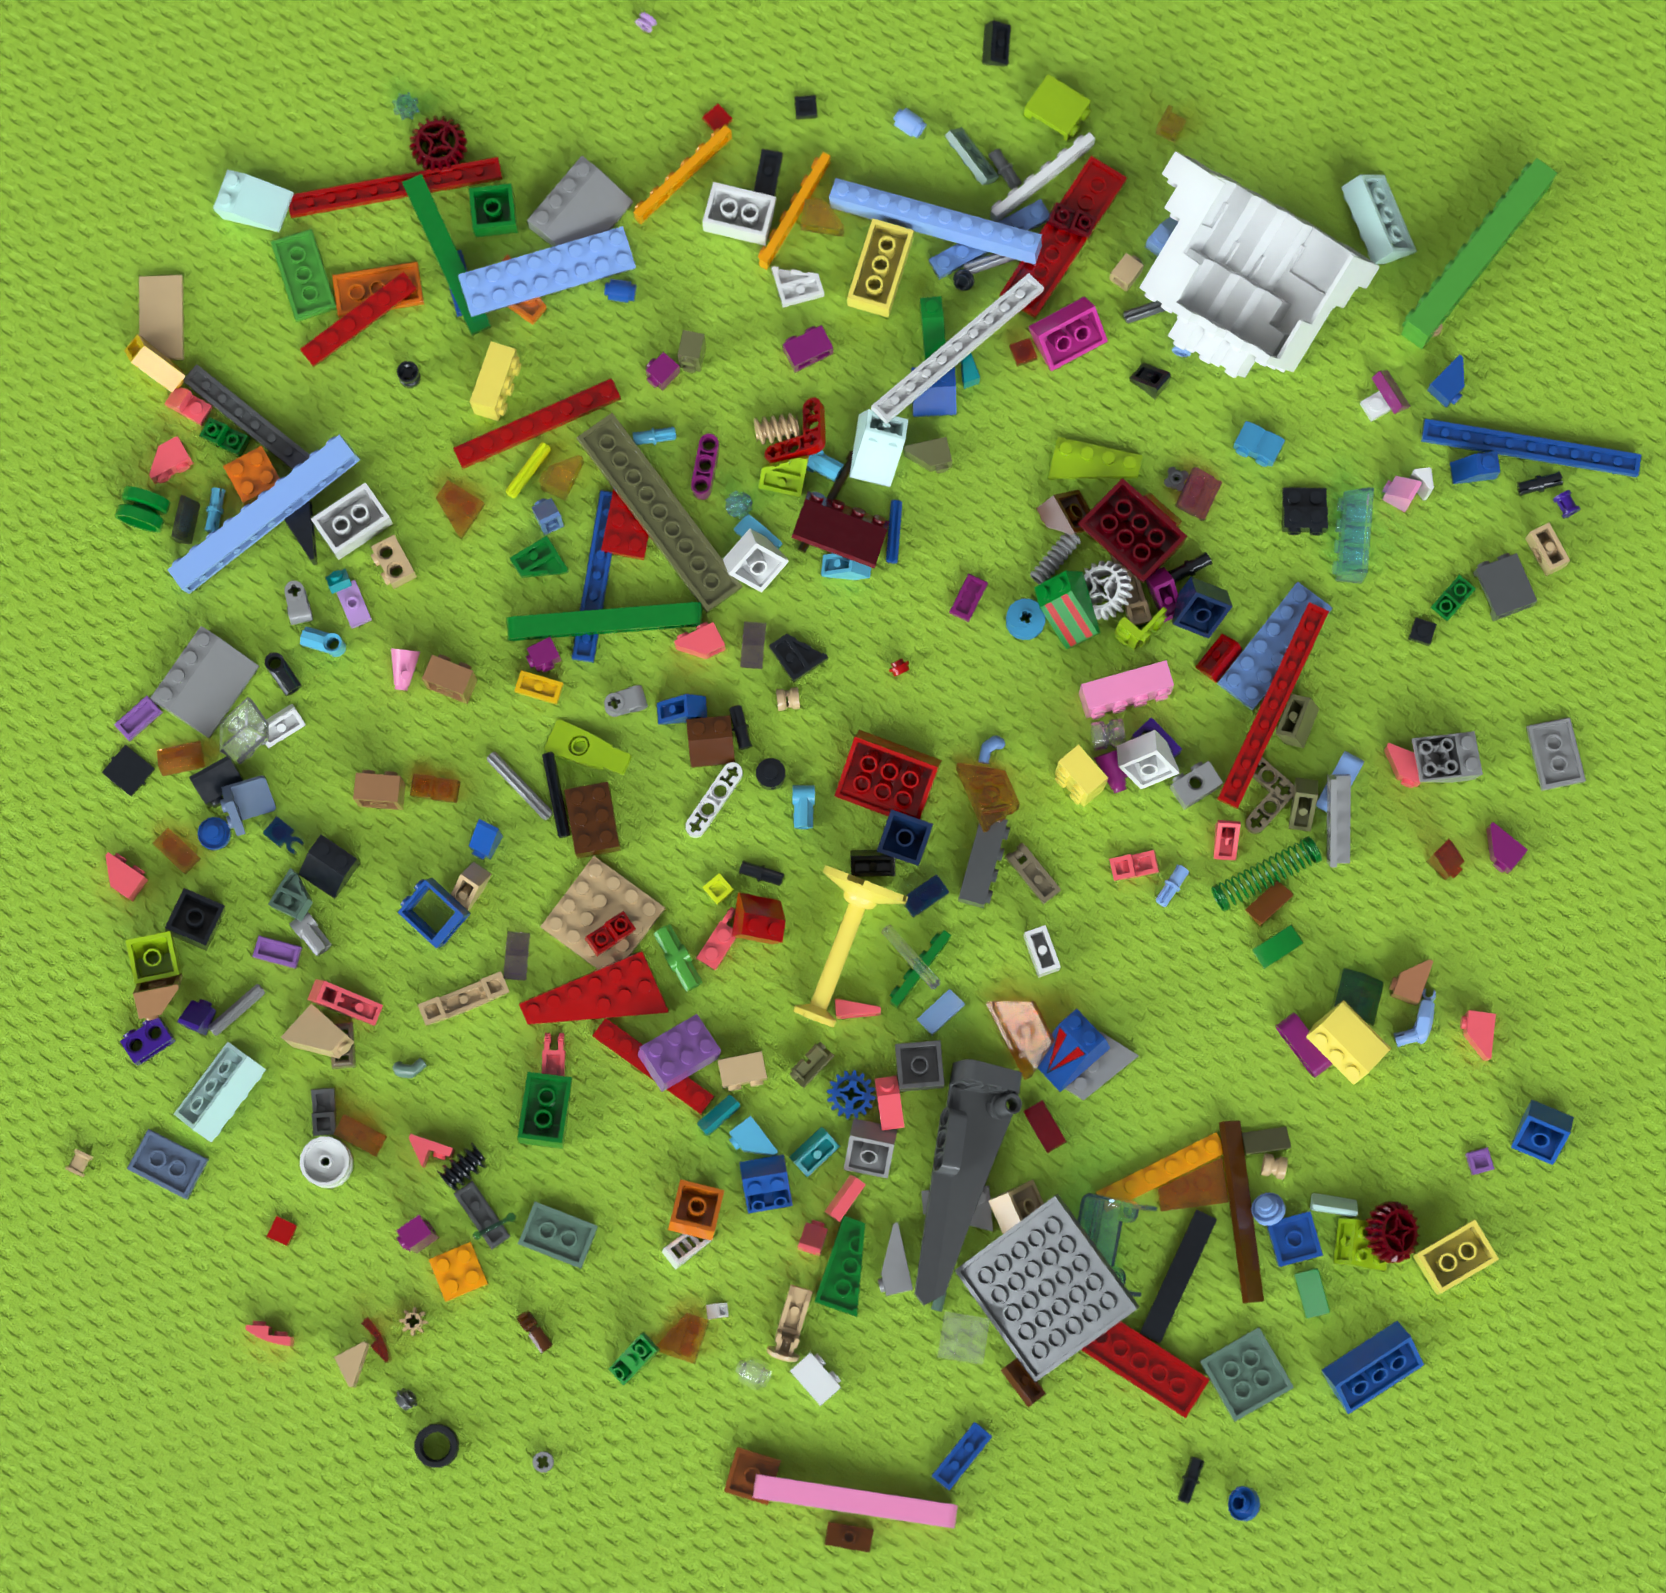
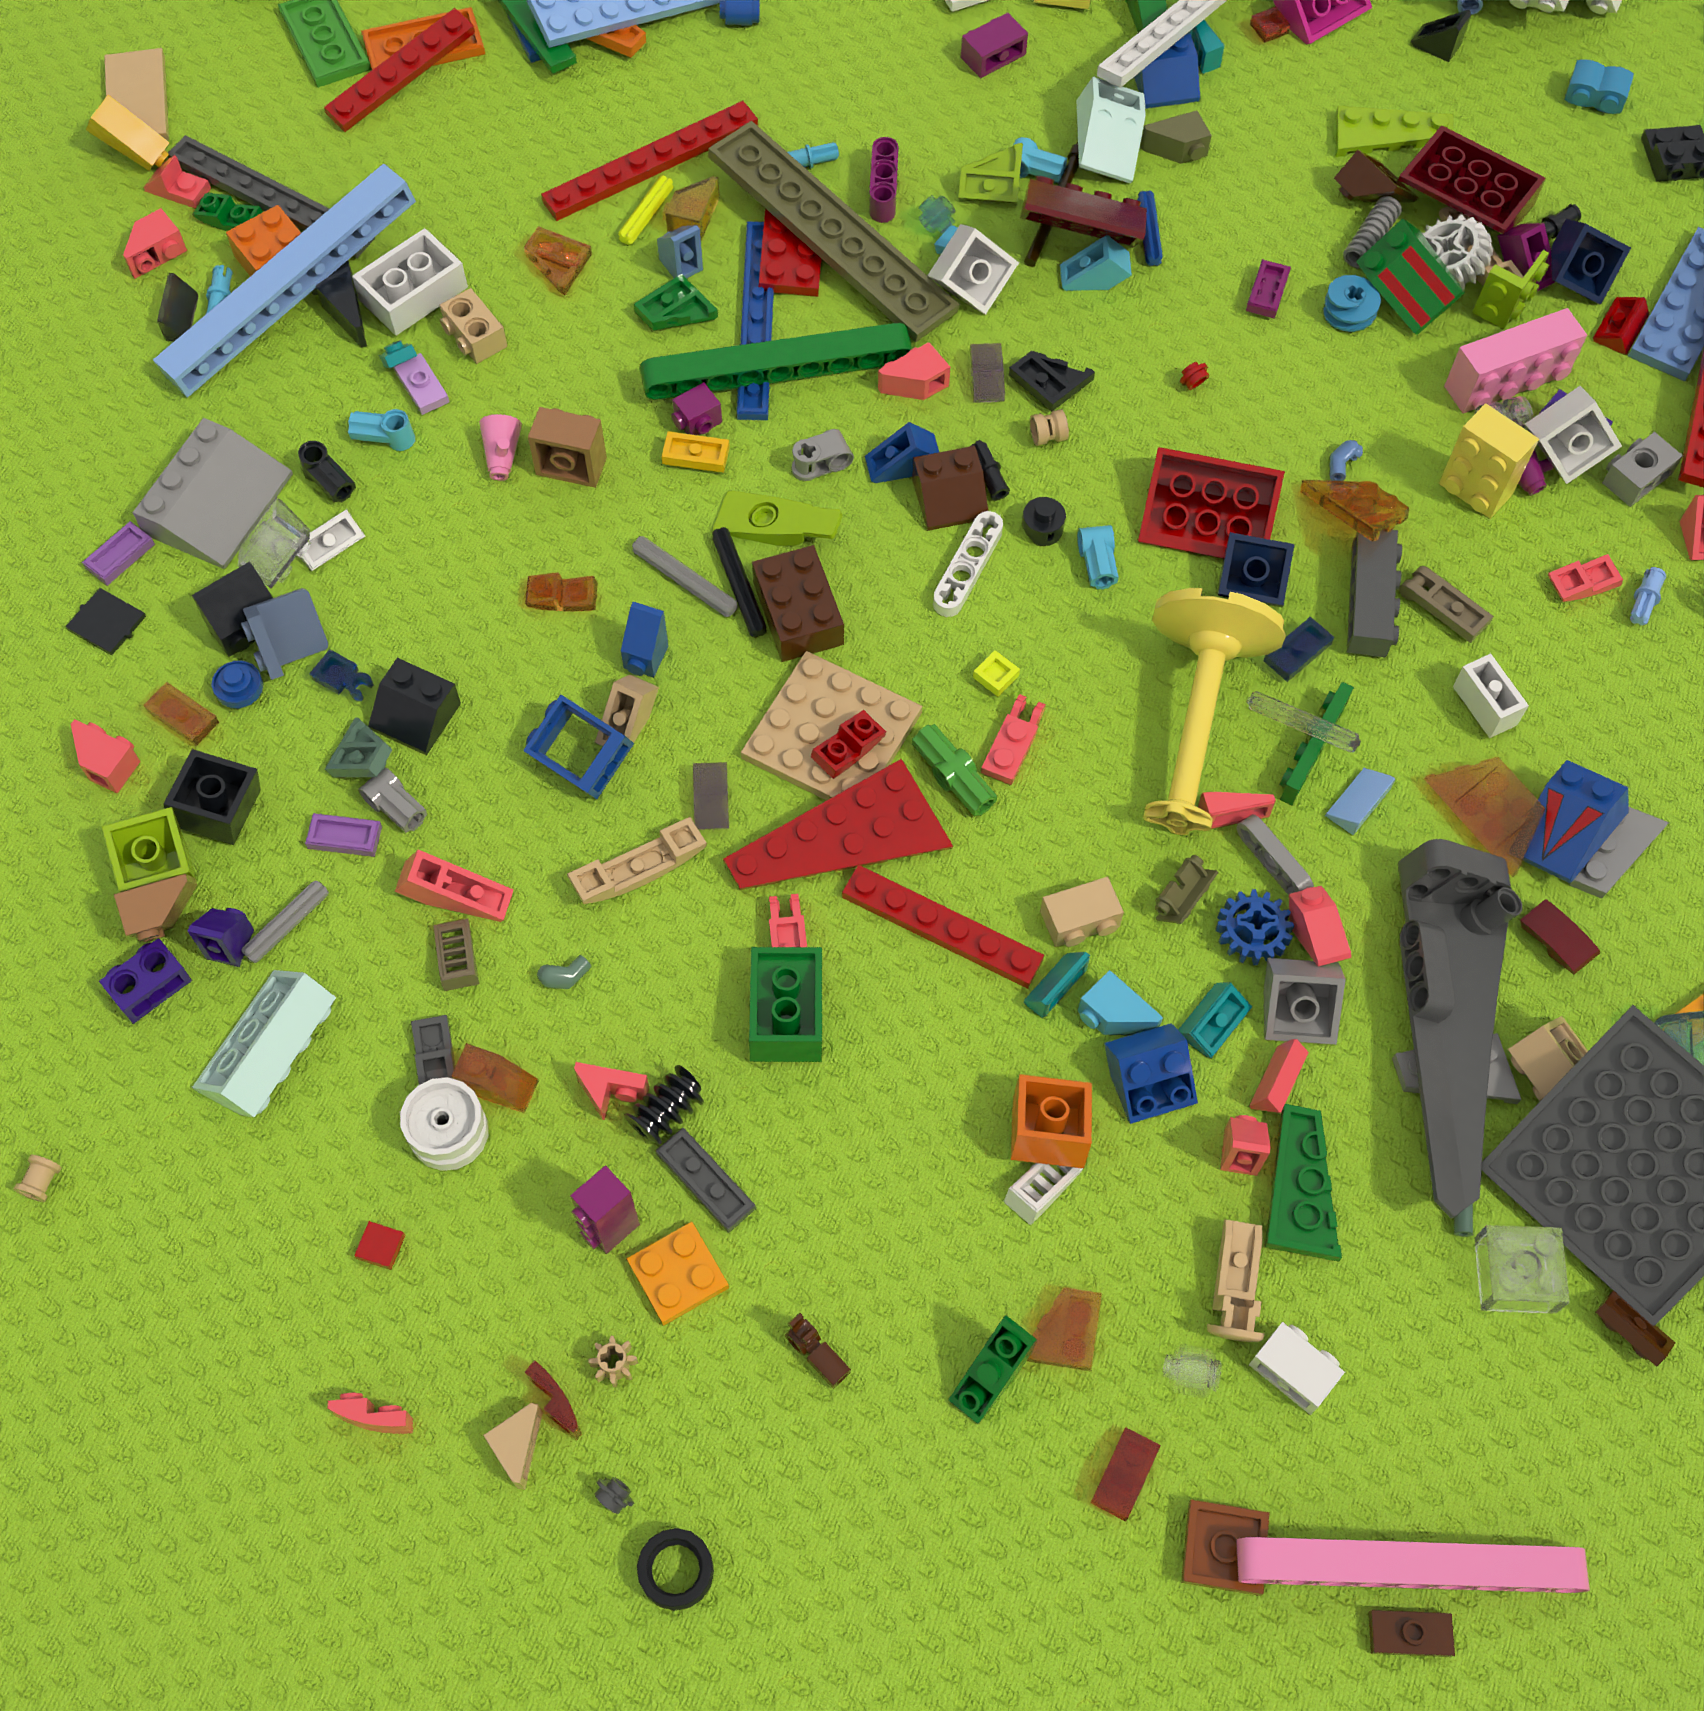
camera: 10 degrees left, 15 degrees down
(142, 509) = (114, 293): green wheel -> none
(167, 1164) = (185, 1165): sand blue tile -> none
(180, 758) = (176, 598): clear orange slope -> none
(297, 607) = (341, 385): light grey piece -> none
(317, 1034) = (414, 936): tan slope -> none
(379, 790) = (479, 595): medium nougat brick -> none
(407, 370) = (472, 120): black wheel -> none
(495, 381) = (589, 109): light yellow brick -> none
(510, 1217) = (753, 1174): clear green hinge -> none
(550, 1460) = (874, 1570): light grey bush -> none
(558, 1235) = (833, 1193): sand green plate -> none
(662, 371) = (809, 85): magenta brick -> none
(679, 1052) = (982, 893): medium lavender brick -> none
(691, 351) = (844, 53): olive brick -> none
(703, 1426) = (1125, 1474): none -> clear red slope
(717, 1310) = (1110, 1281): white piece -> none
(759, 919) = (1066, 705): red slope -> none
(761, 873) = (1053, 646): black axle -> none
(776, 428) = (970, 126): tan piece -> none
(809, 443) = (1021, 129): red beam -> none
(874, 1047) = (1273, 855): none -> light grey beam
(895, 1269) = (1385, 1177): light grey slope -> none
(919, 1066) = (1352, 868): flat silver brick -> none
(961, 1456) = (1567, 1465): blue plate -> none
(1181, 475) = (1503, 136): dark grey plate -> none
(1198, 493) = (1538, 146): clear pink plate -> none

